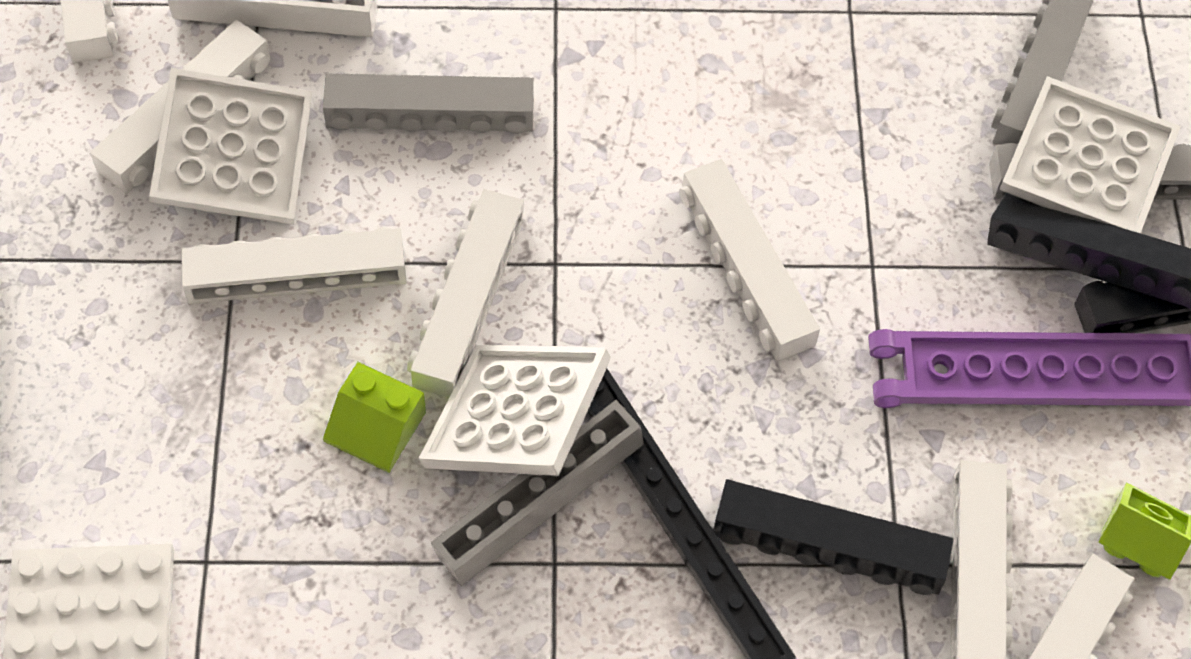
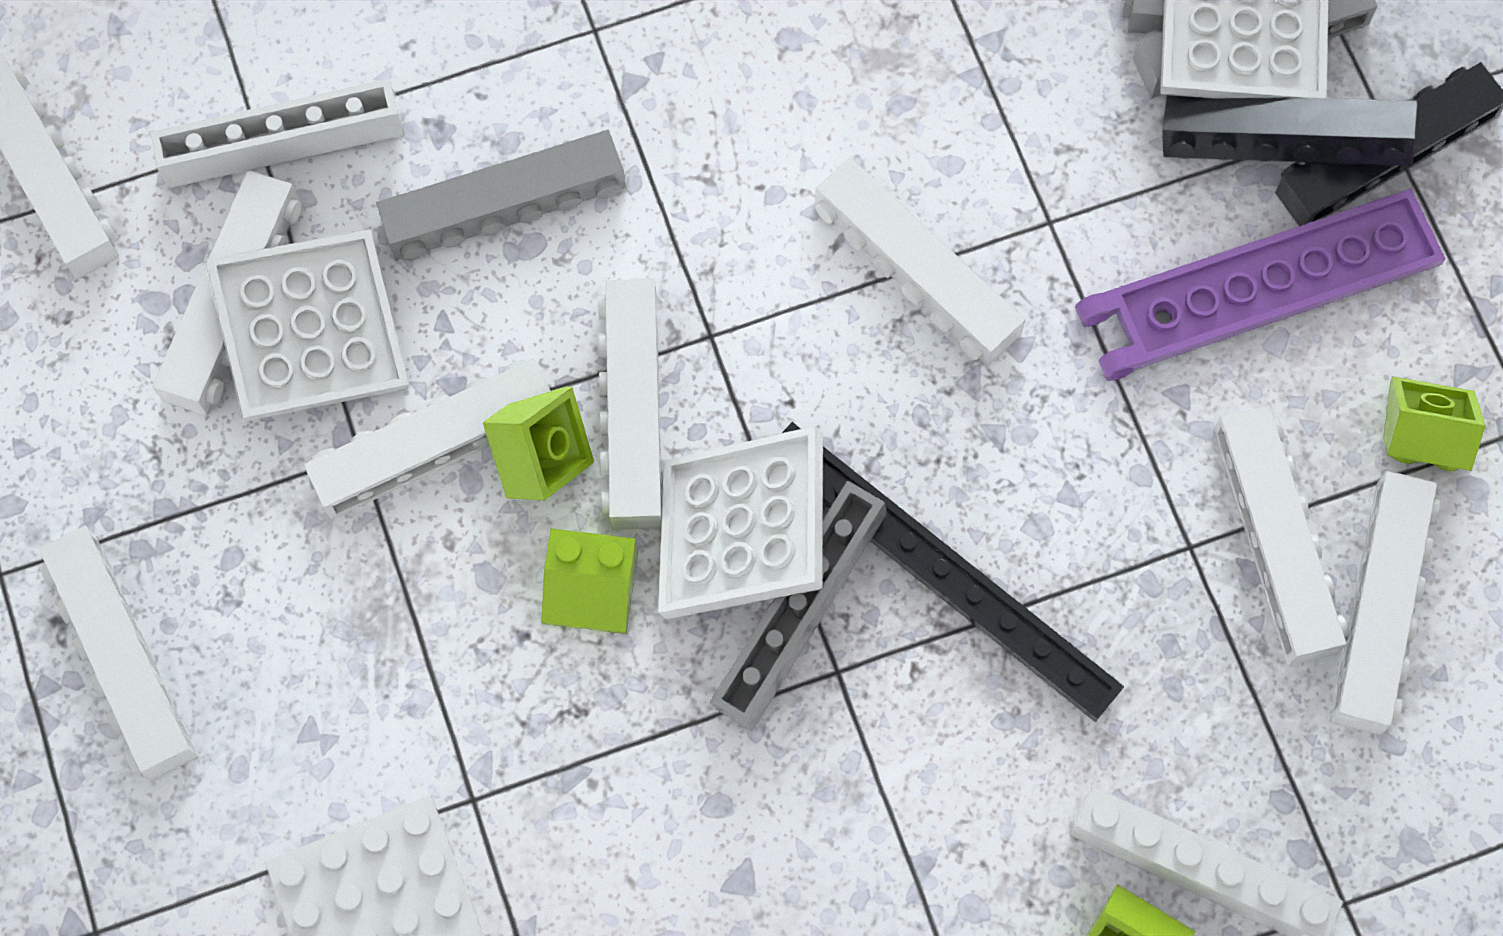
camera: 15 degrees left, 10 degrees up
(376, 294) = (538, 444): none -> lime slope
(833, 537) = (1116, 545): black brick -> none

